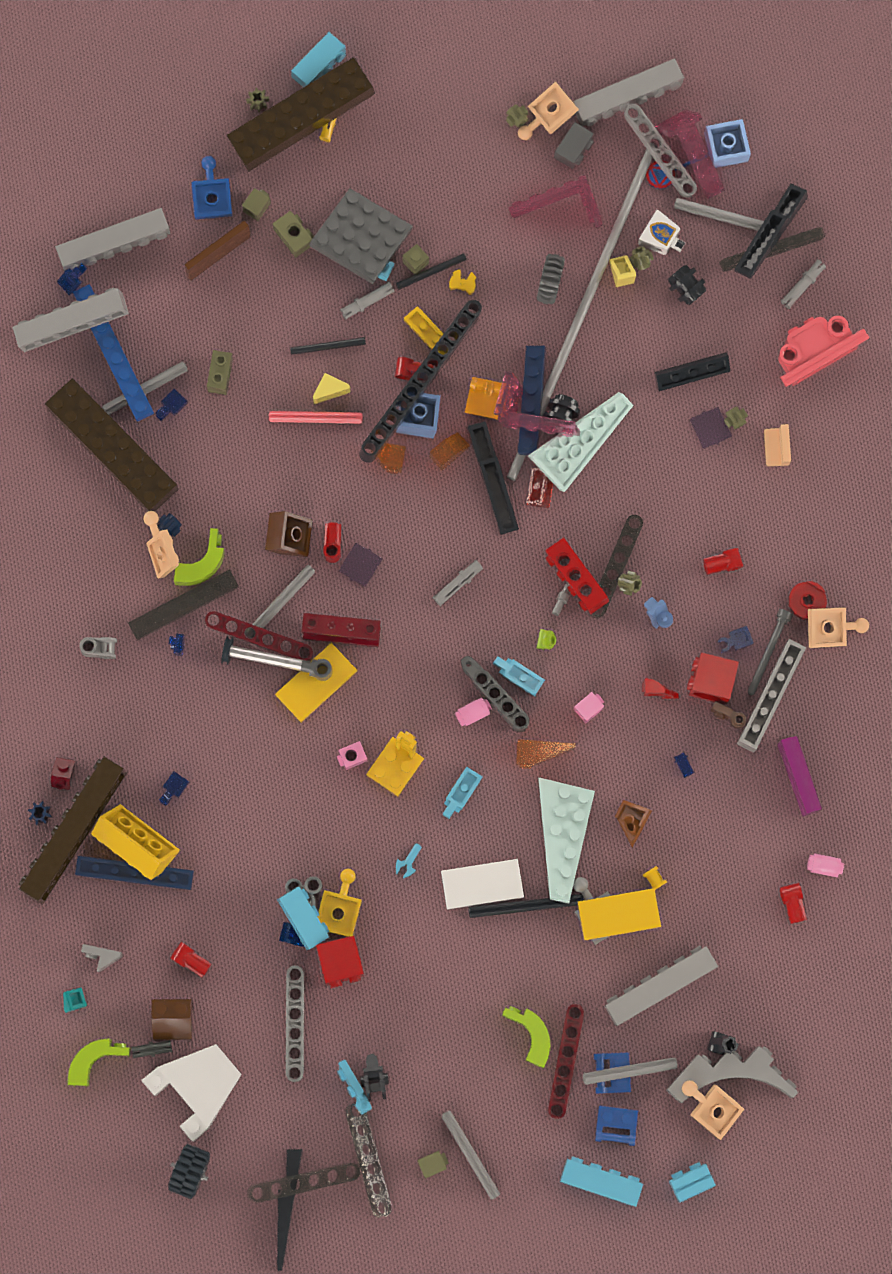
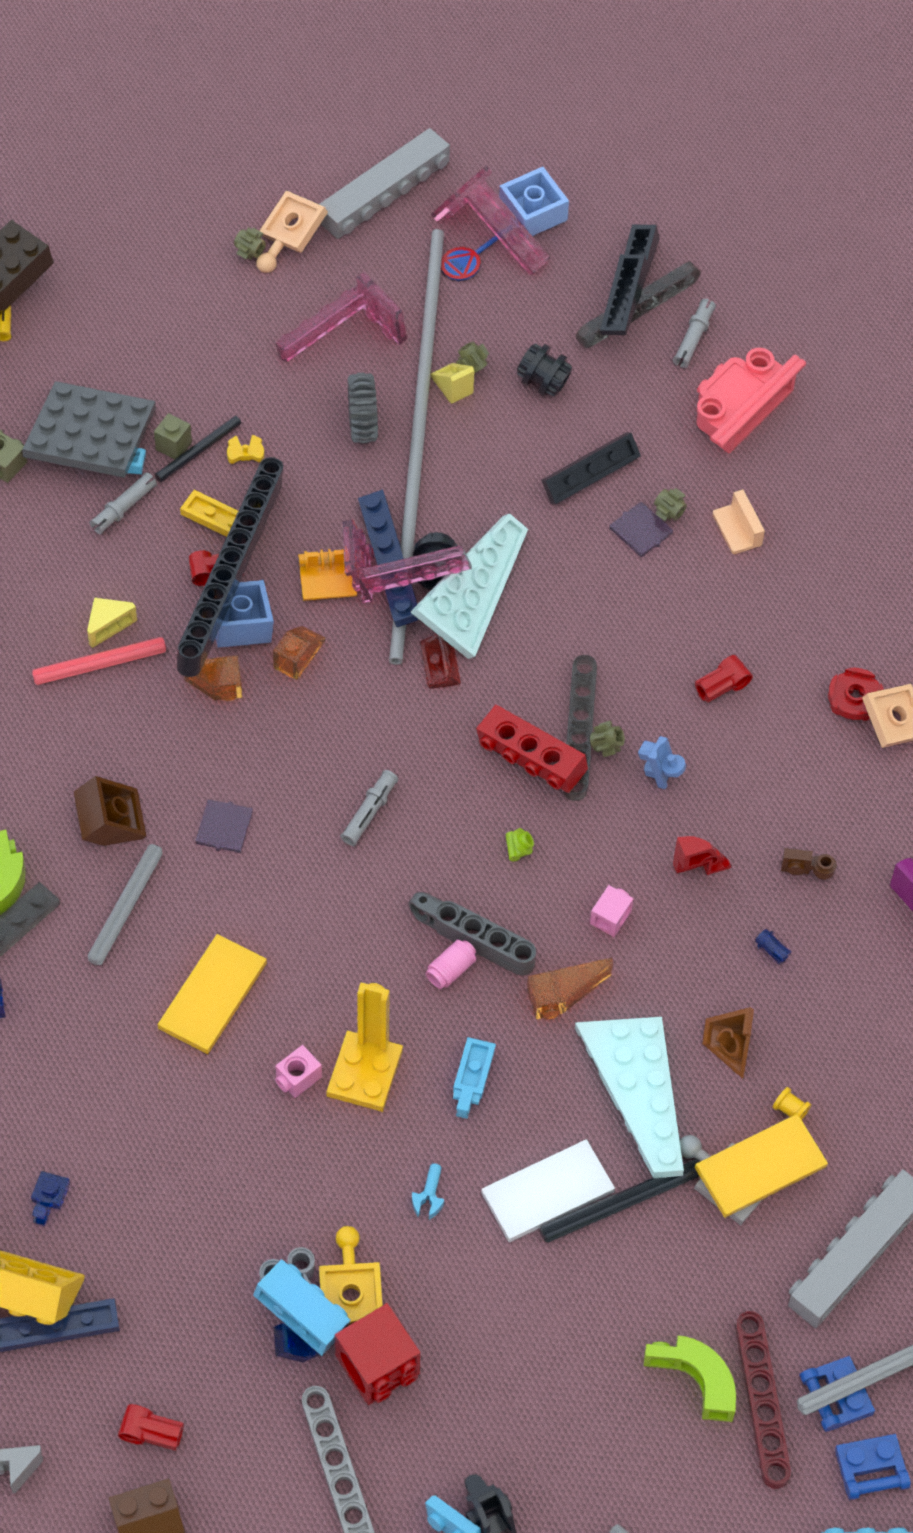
camera: 15 degrees left, 20 degrees down
(259, 633) = (109, 947): dark red beam -> none
(275, 660) = (152, 974): piece -> none
(327, 345) = (87, 572): black bar -> none
(332, 540) = (175, 806): red piece -> none
(341, 630) = (226, 906): dark red fence -> none
(492, 477) = (369, 665): black slope -> none
(519, 675) = (498, 898): medium azure hinge -> none
(562, 598) = (521, 788): light grey bar -> none
(574, 145) = (336, 258): dark grey brick -> none
(661, 235) = (489, 324): white torso -> none
(662, 149) = (453, 230): light grey beam -> none
(712, 678) = (768, 819): red brick -> none
(718, 214) = (551, 286): light grey axle -> none
(738, 638) = (782, 767): clear blue plate -> none
(771, 695) = (857, 821): light grey brick -> none
(783, 618) = (832, 723): dark grey piece -> none

